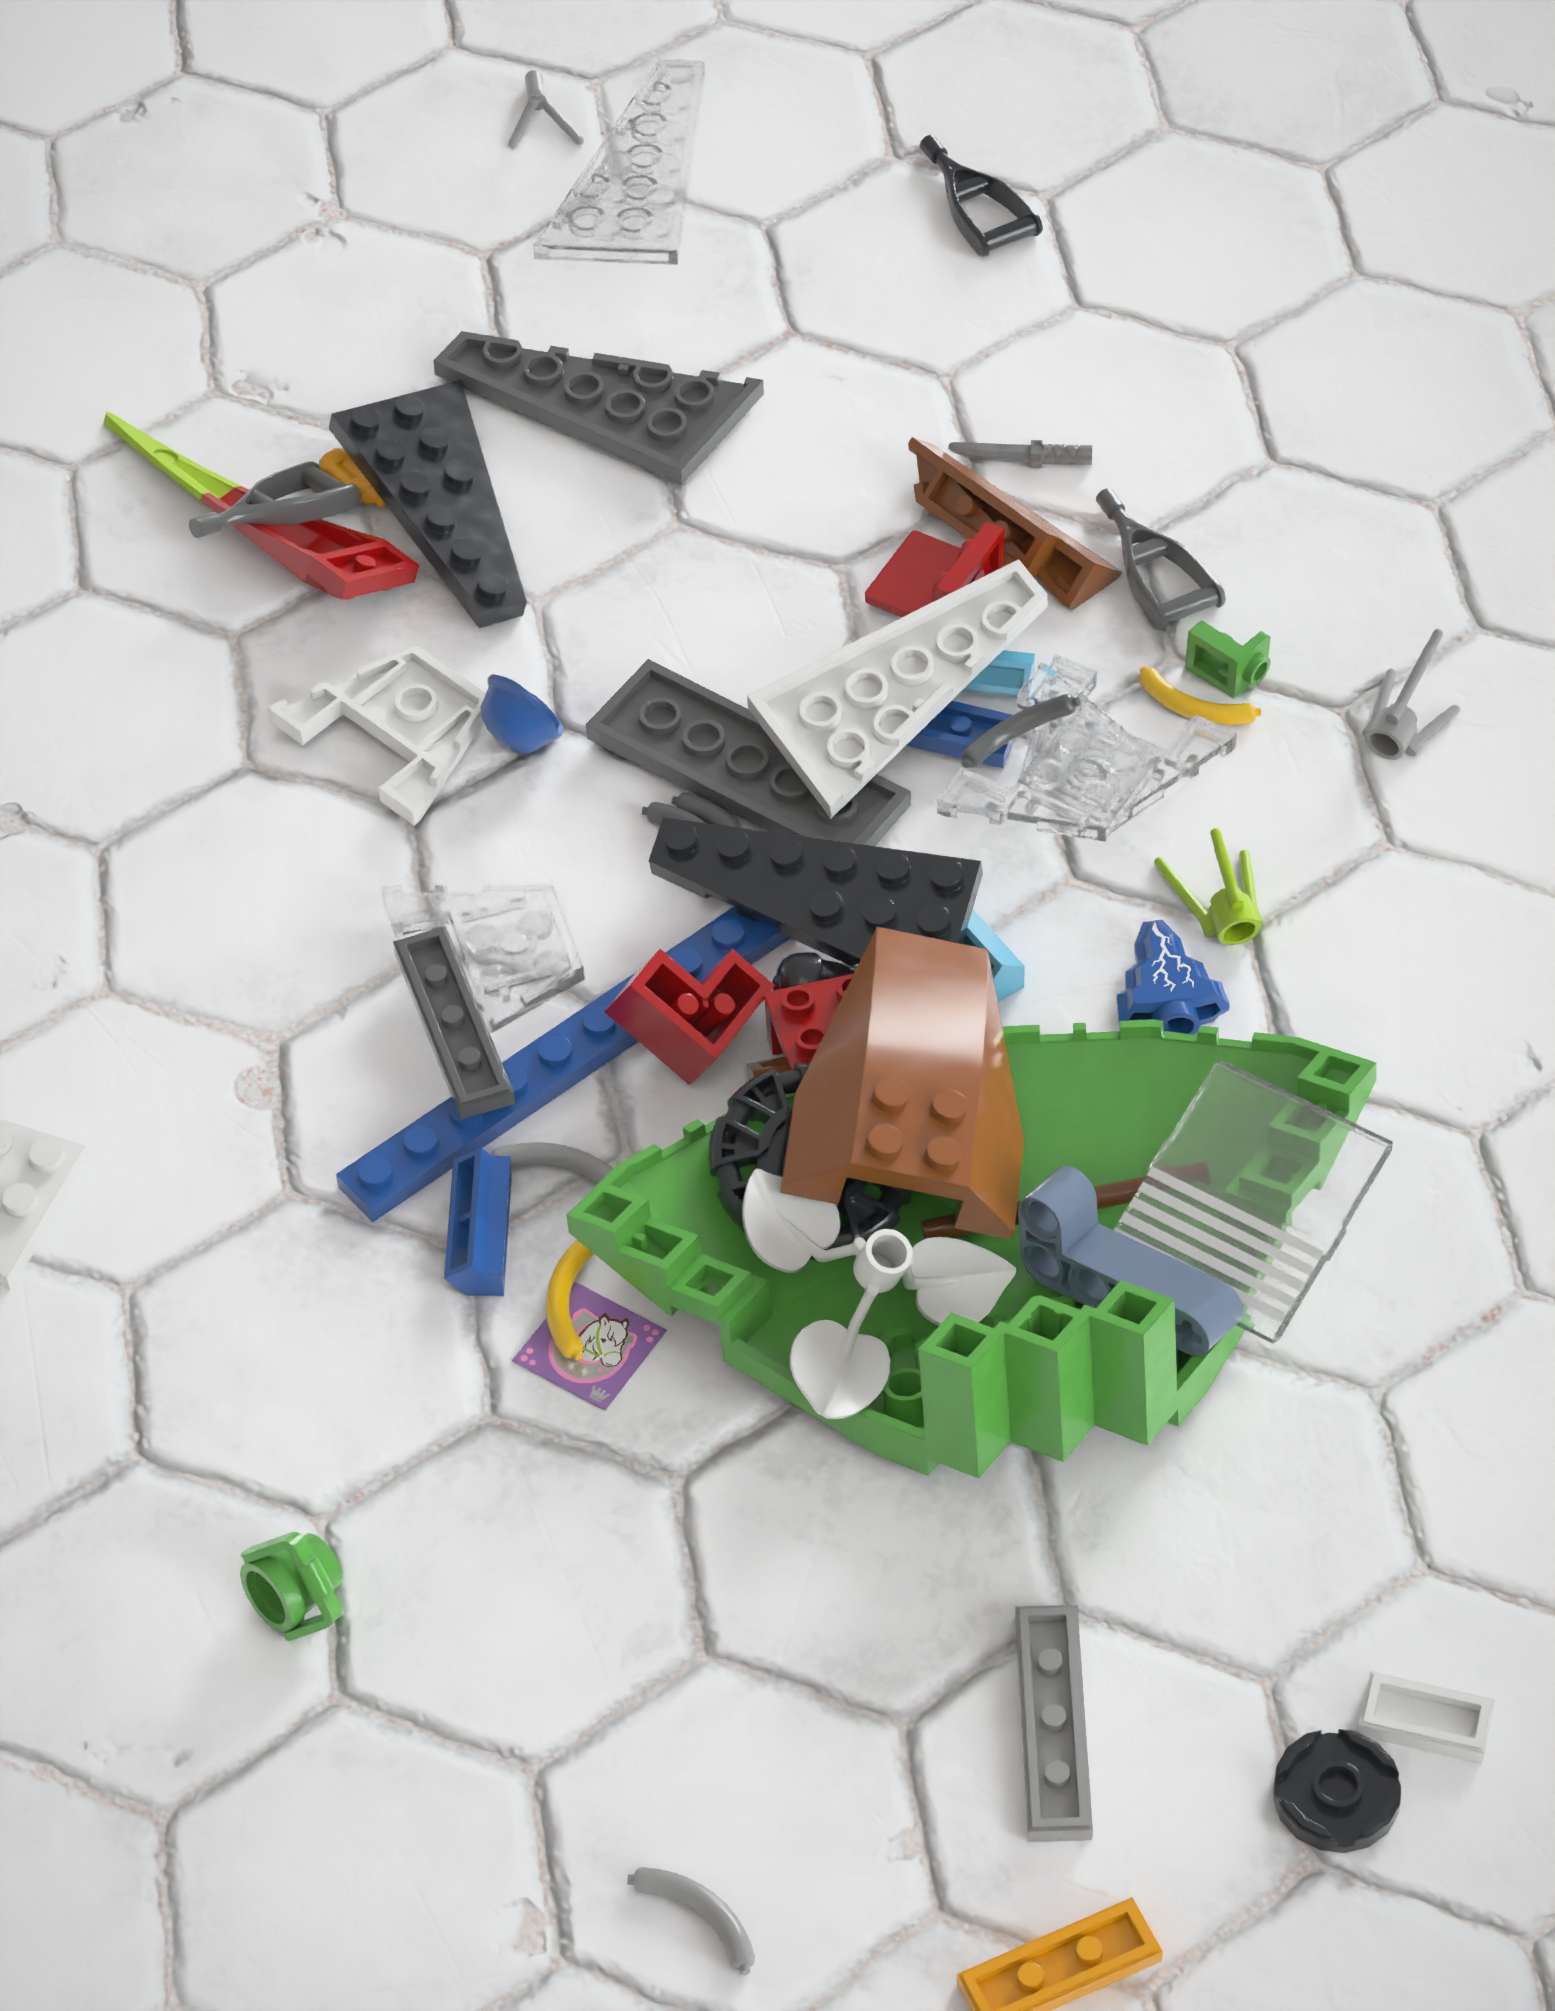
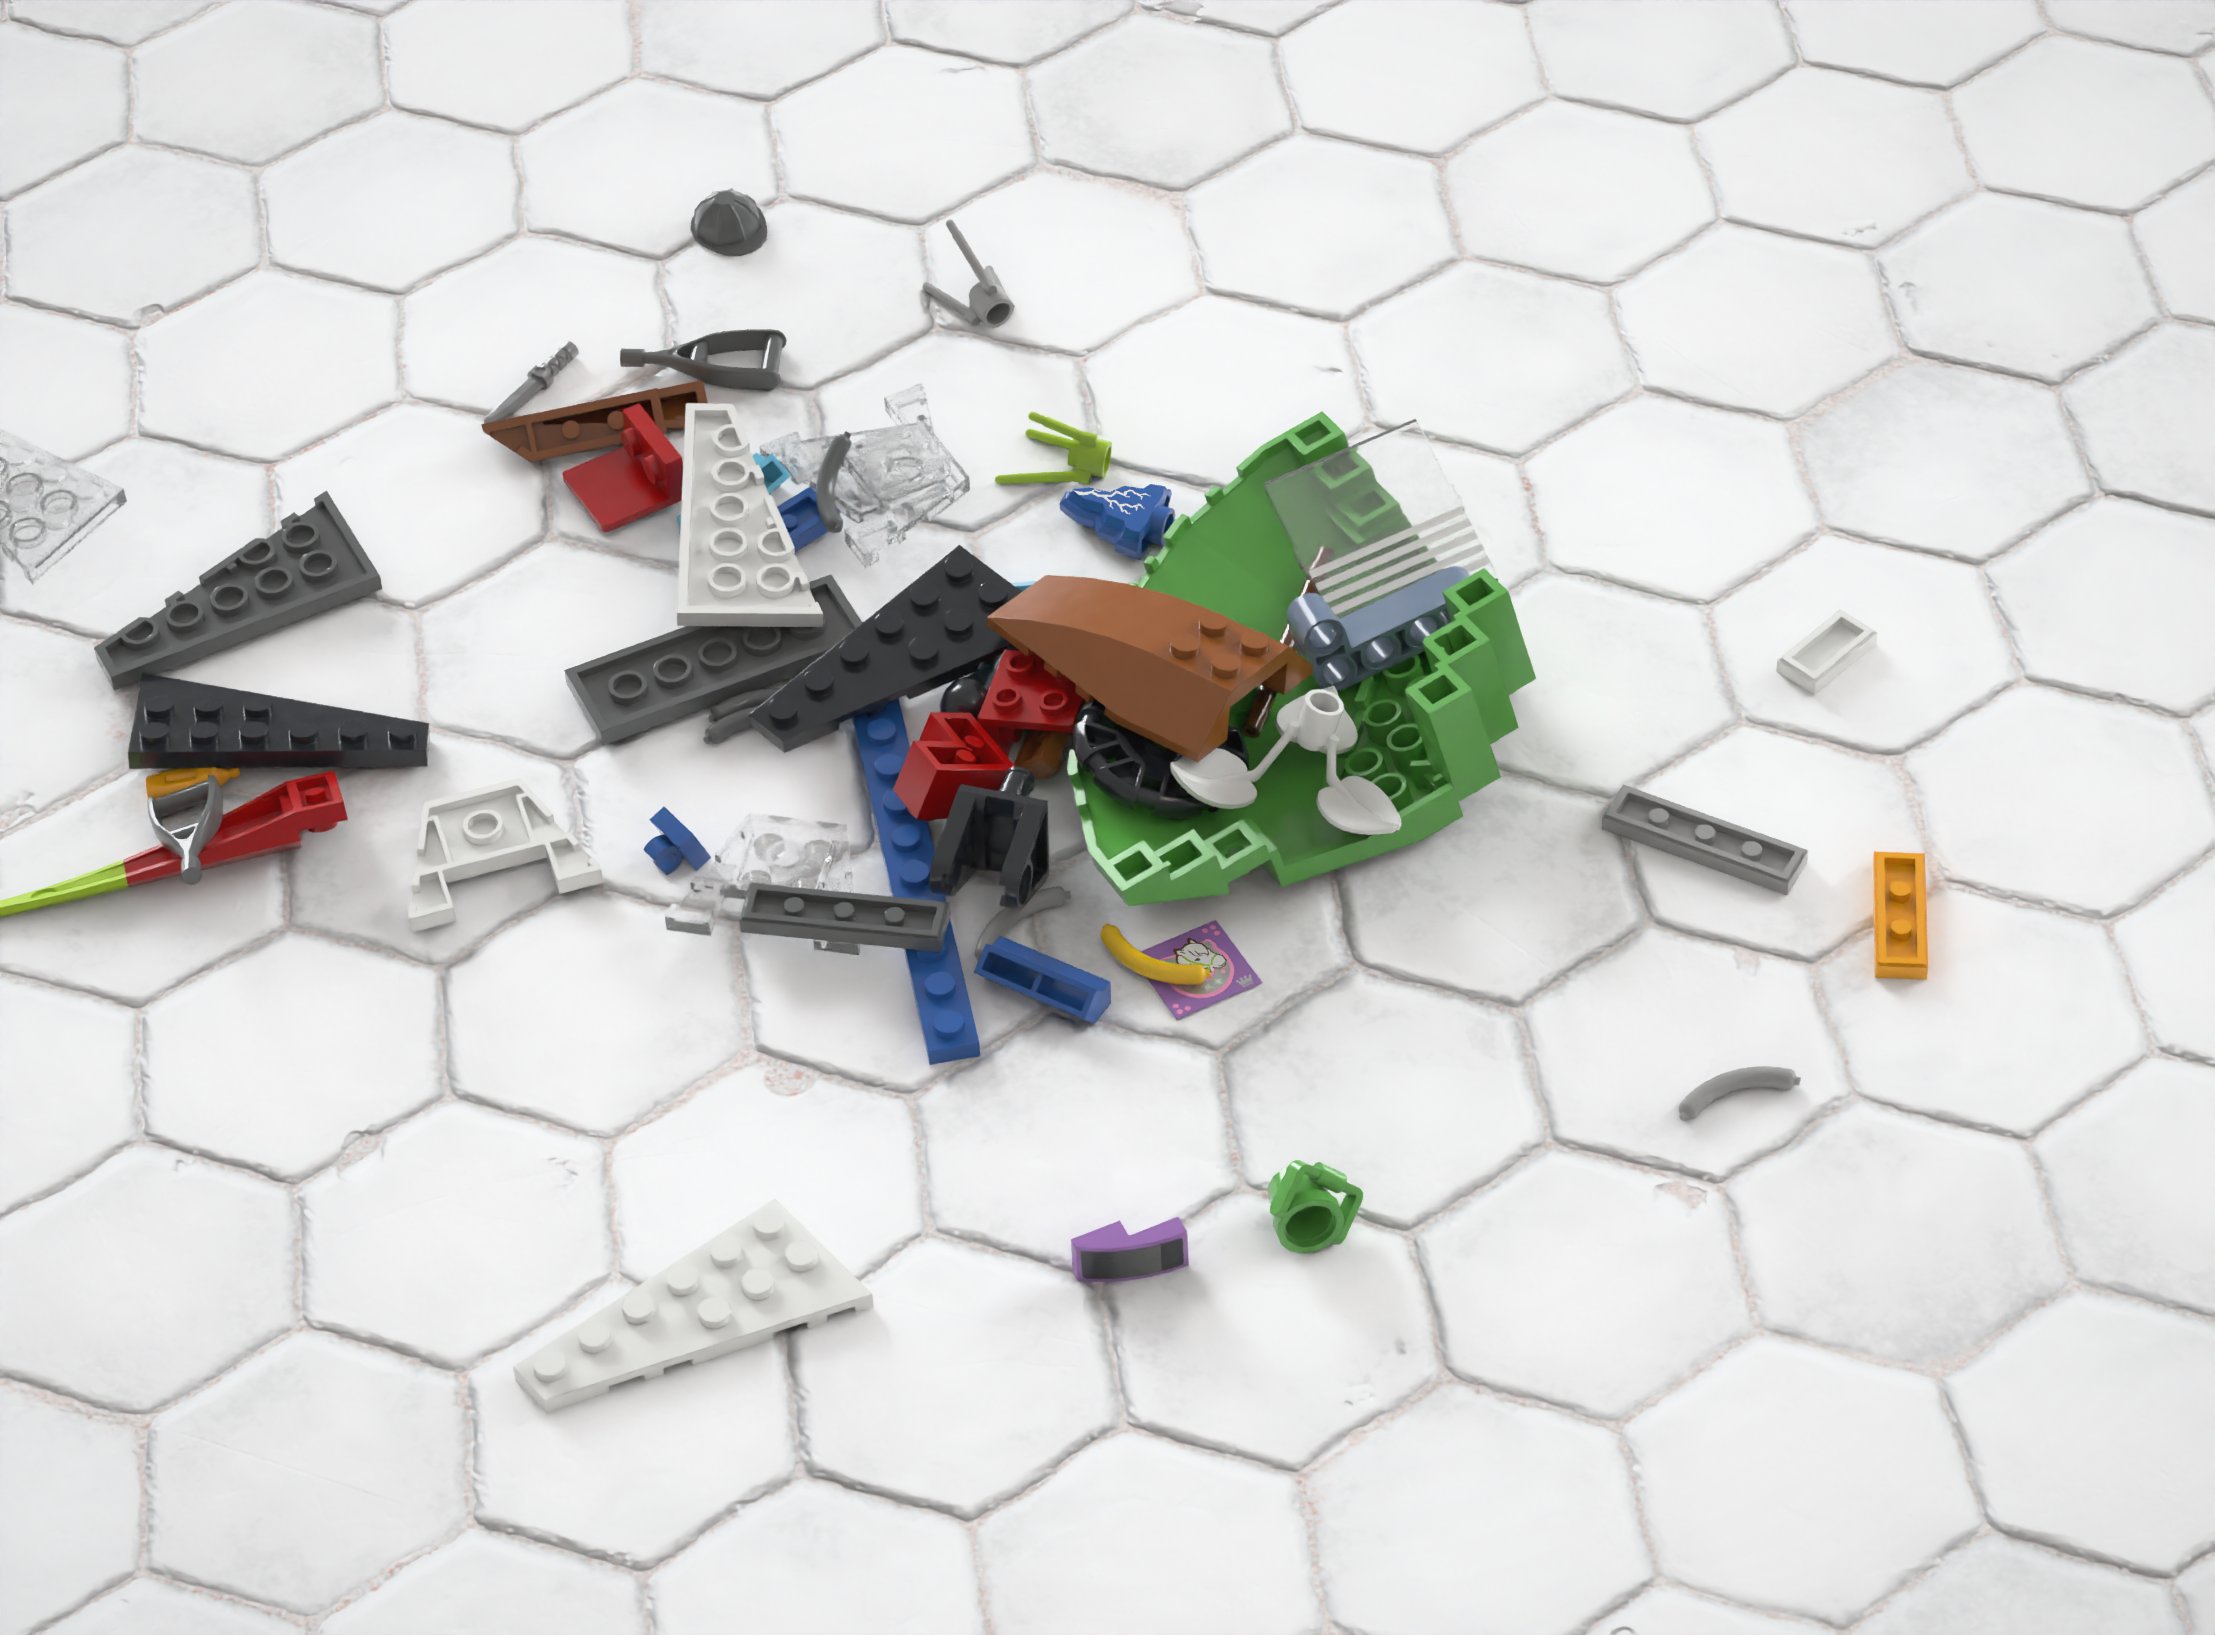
camera: 60 degrees left, 5 degrees down
(158, 1458) = (1115, 1256): none -> slope
(486, 849) = (674, 844): none -> blue tile
(518, 716) = (559, 764): blue helmet -> none
(612, 1090) = (995, 833): none -> black piece
(965, 183) = (216, 298): black piece -> none
(1188, 706) = (864, 402): yellow piece -> none
(1224, 661) = (847, 358): bright green bracket -> none
(1337, 1790) = (1853, 719): black tile -> none
(1357, 483) = (729, 223): none -> dark grey piece

